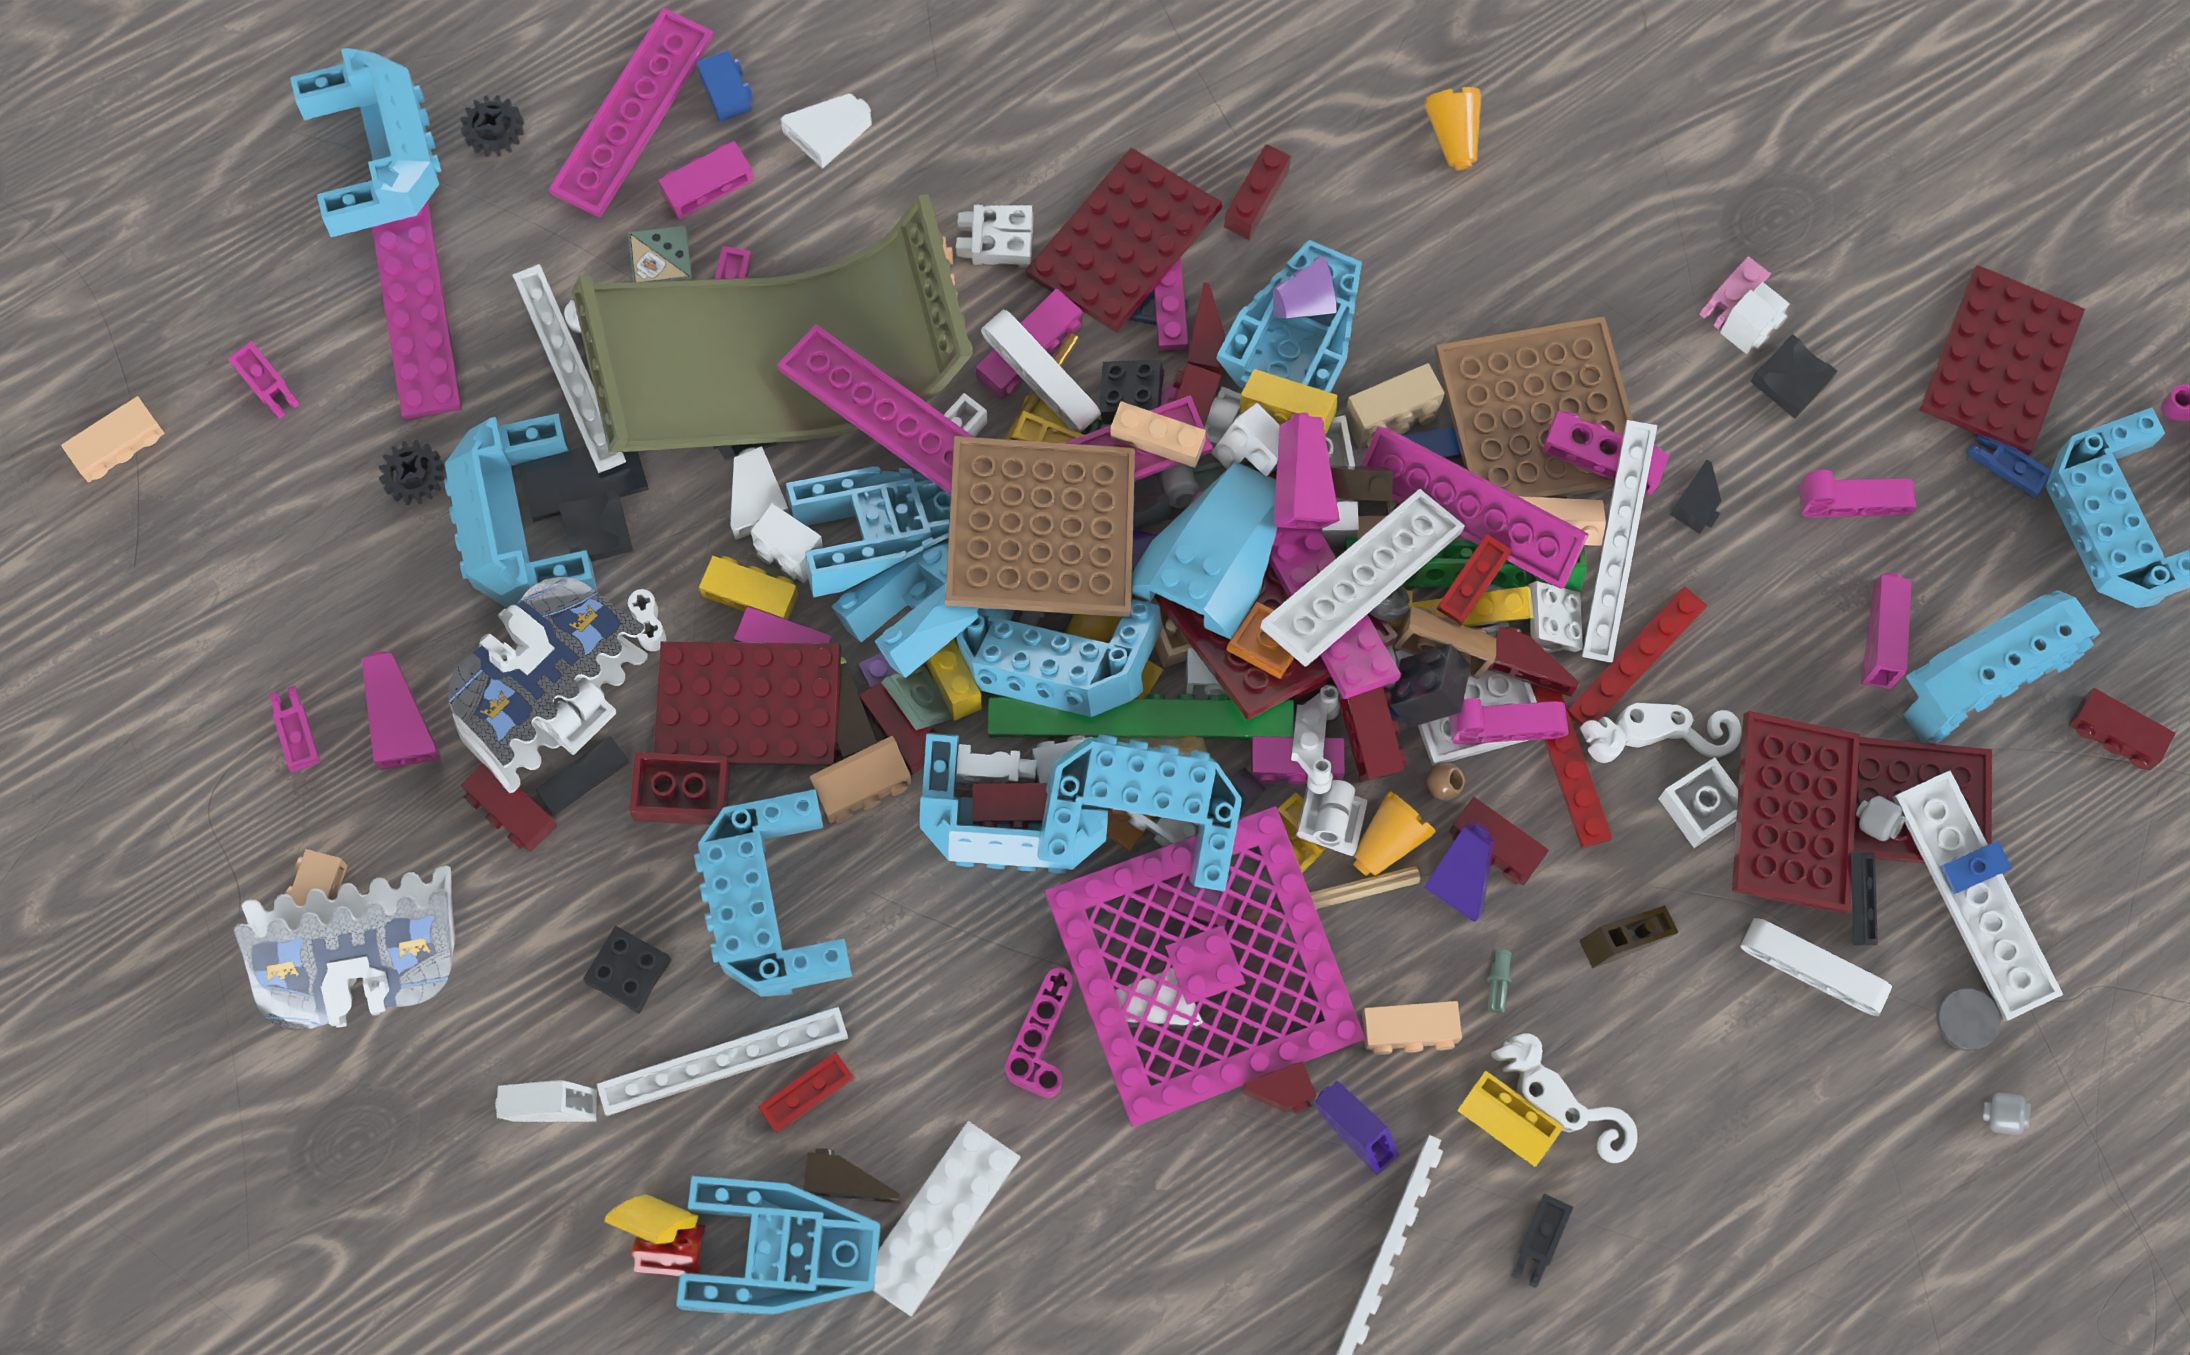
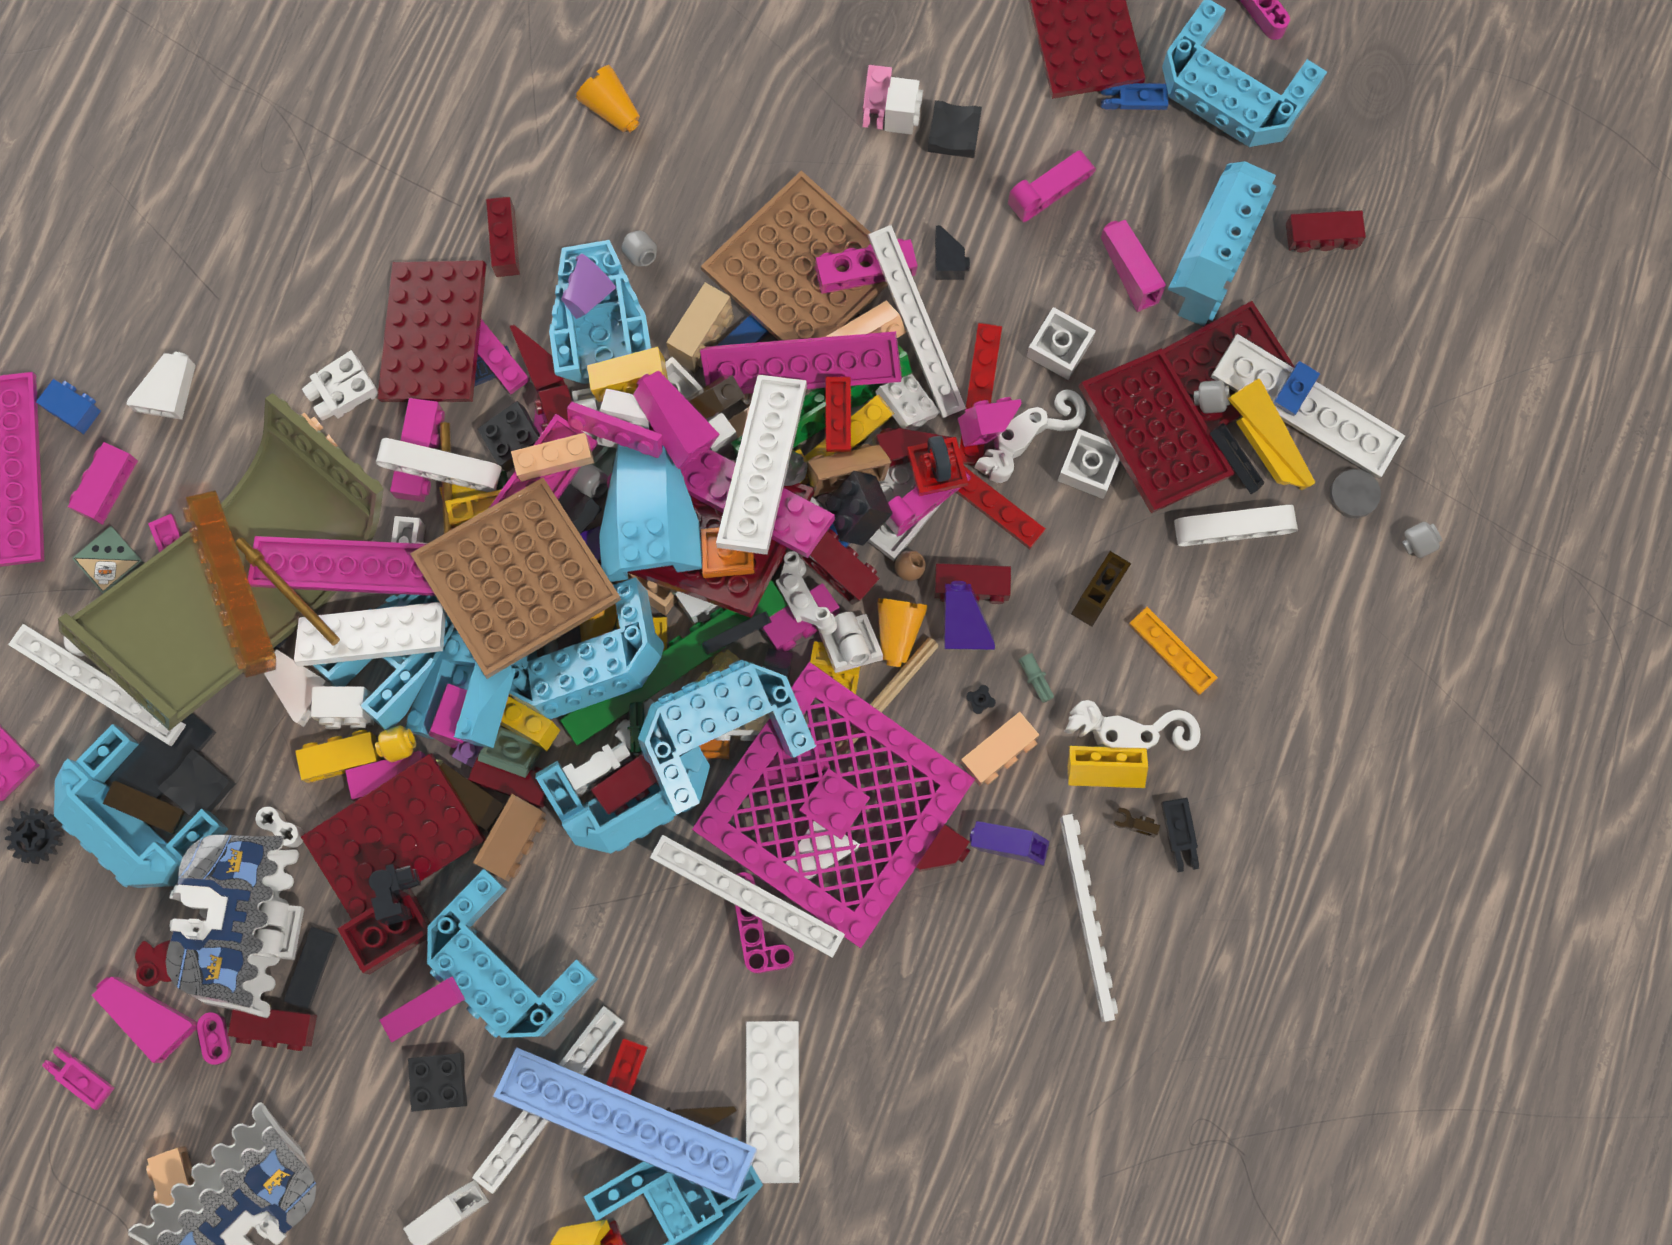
camera: 30 degrees left, 5 degrees up
(441, 665) = (154, 959): none -> dark red plate
(443, 780) = (211, 1039): none -> dark pink plate
(532, 513) = (144, 807): none -> dark brown tile
(661, 886) = (422, 1009): none -> dark pink tile
(713, 745) = (389, 889): none -> black hips
(761, 353) = (230, 584): none -> clear orange brick
(782, 1134) = (626, 1123): none -> light blue plate
(802, 346) = (257, 560): none -> pearl gold bar
(813, 612) = (395, 743): none -> yellow head
(862, 490) = (372, 634): none -> white plate
(879, 619) = (447, 716): none -> dark pink slope
(1055, 995) = (747, 896): none -> white plate
(1069, 740) = (637, 719): none -> dark green axle
(1222, 728) = (736, 633): none -> black beam
(1237, 448) = (614, 430): none -> dark pink plate
(1386, 289) = (639, 248): none -> light grey head
(1419, 970) = (988, 701): none -> black plate
(1505, 1203) = (1143, 825): none -> dark brown plate
(1541, 697) = (937, 465): none -> red plate
(1624, 686) = (987, 420): none -> dark pink slope
(1661, 1050) = (1173, 651): none -> light orange tile
(1756, 661) = (1060, 343): none -> white brick
(1914, 898) = (1270, 436): none -> yellow wedge

